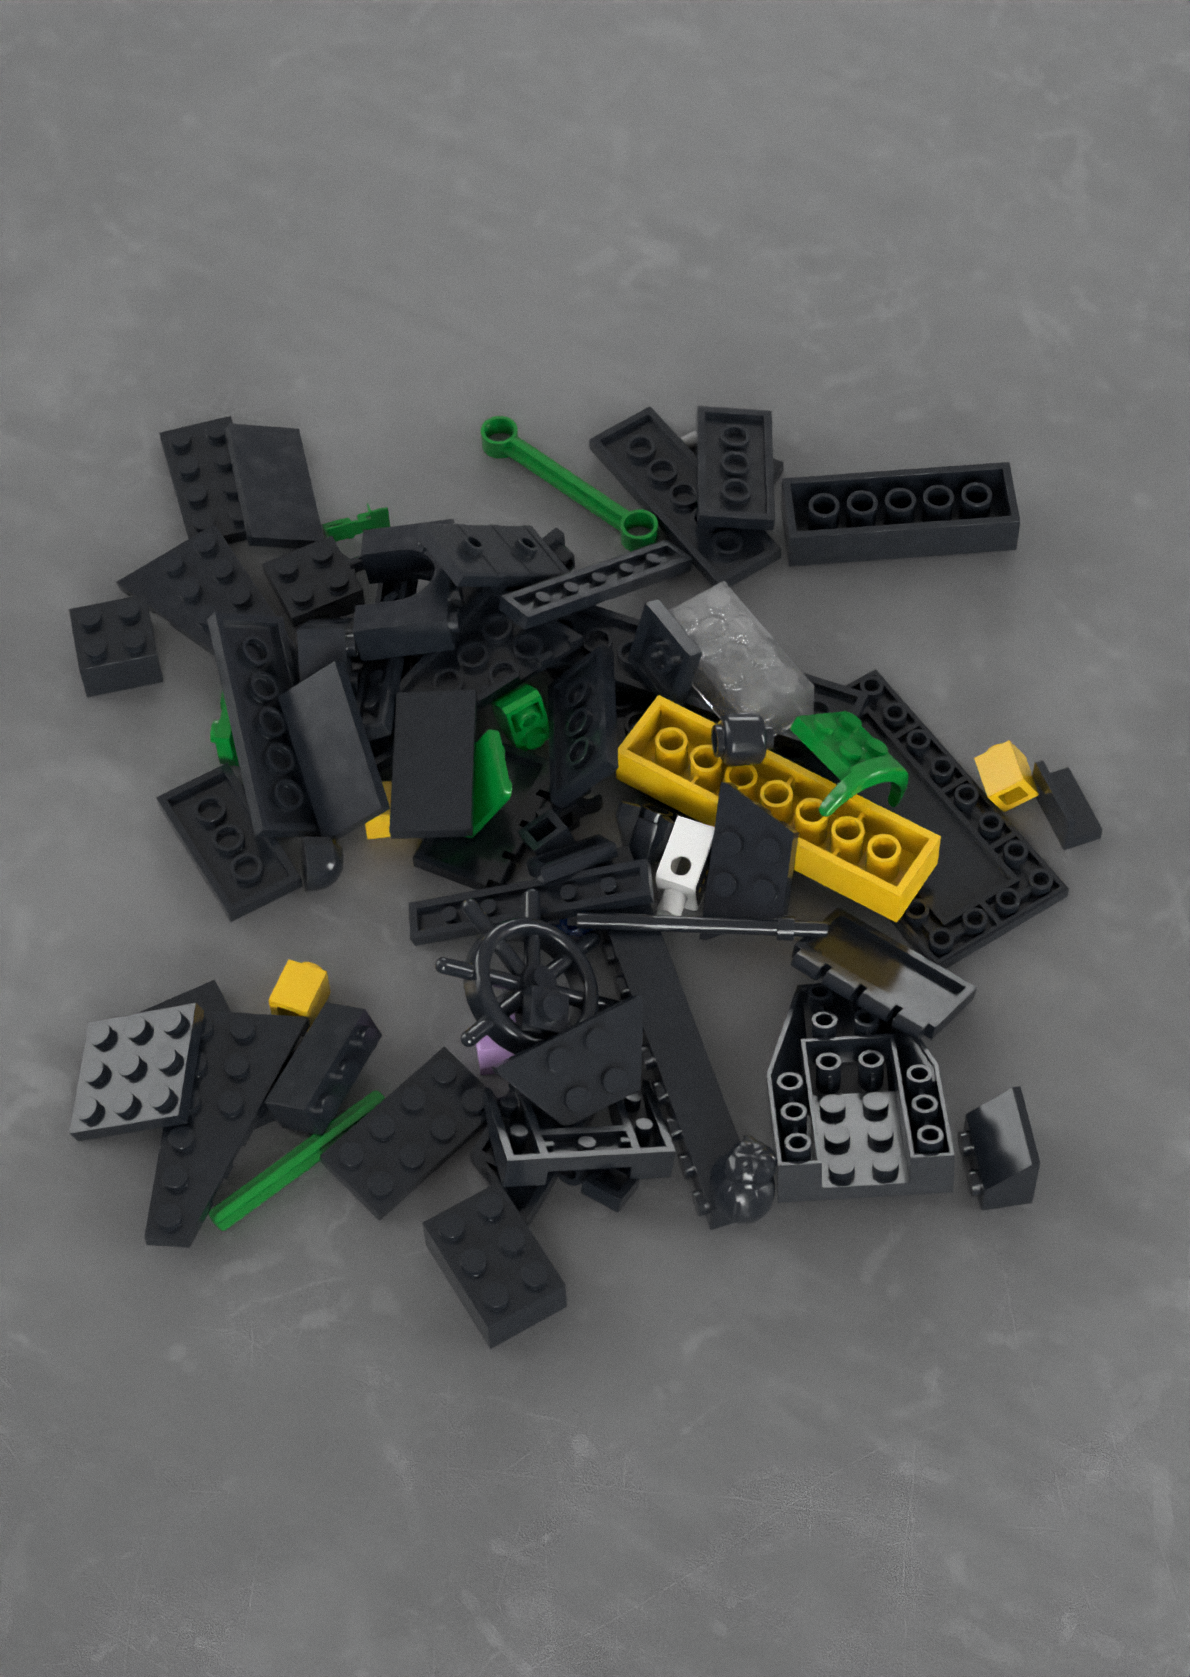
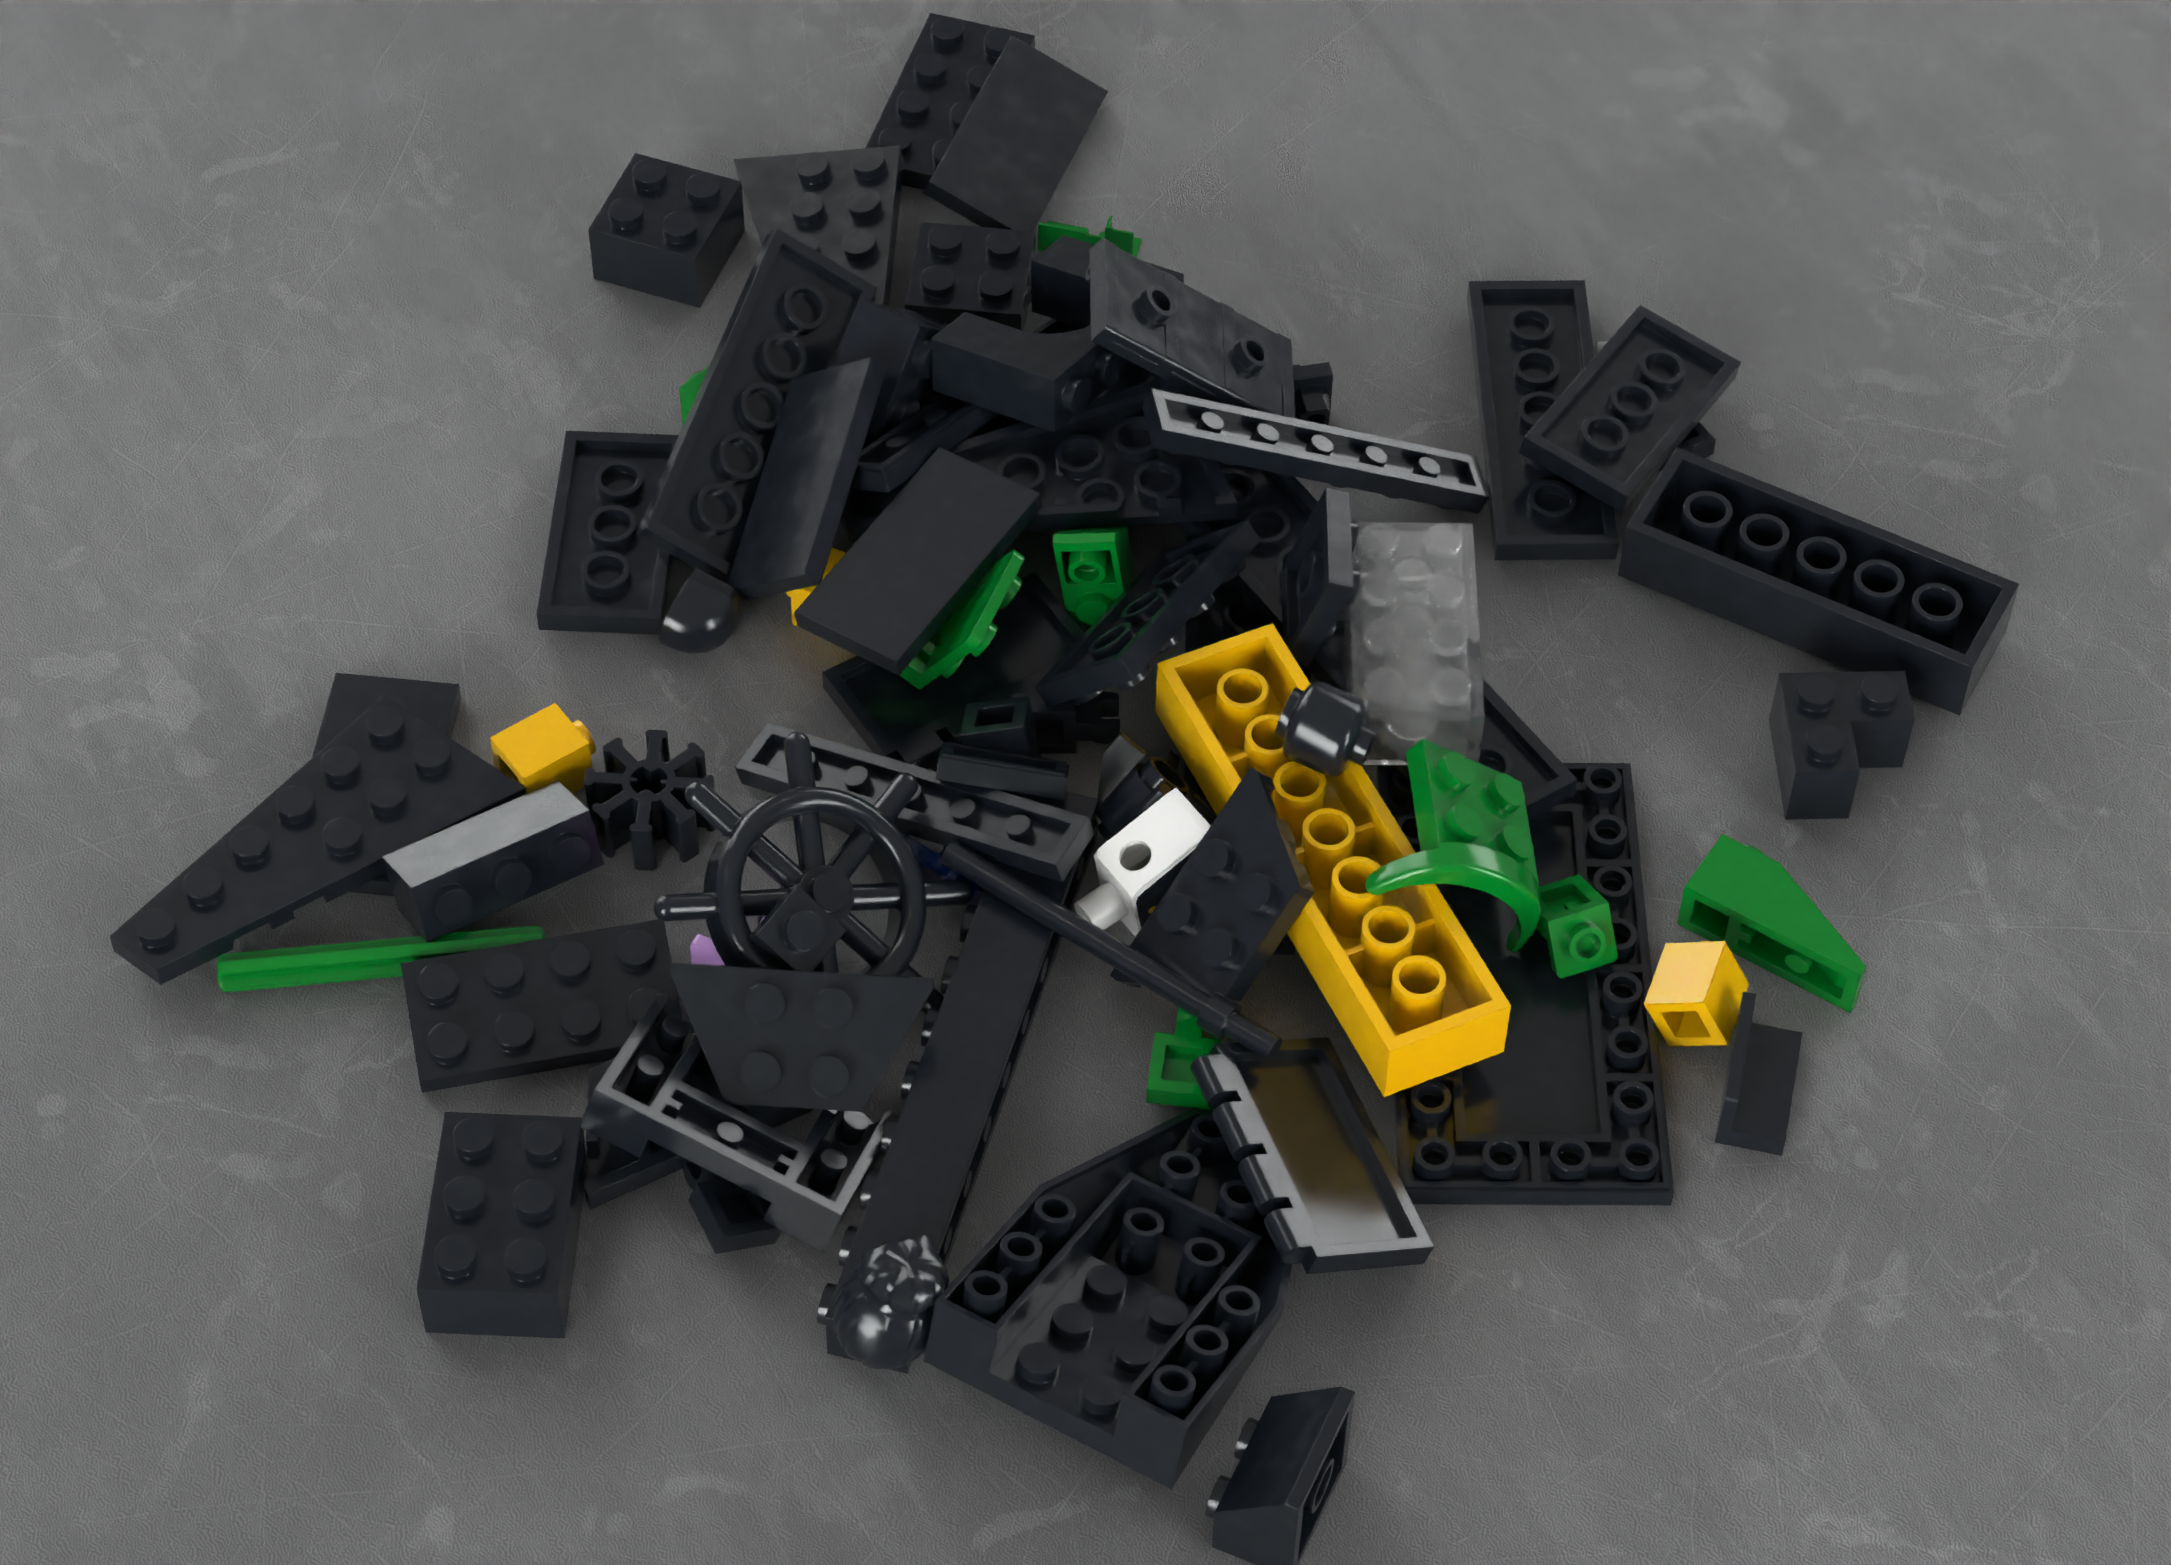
camera: 30 degrees right, 5 degrees down
(137, 1072) = (267, 737): plate -> none
(380, 981) = (647, 799): none -> black gear
(568, 483) = (1401, 322): green piece -> none
(774, 964) = (1171, 1057): none -> green plate
(925, 771) = (1576, 926): none -> green bracket
(965, 597) = (1829, 729): none -> black brick
(1002, 713) = (1770, 922): none -> green slope

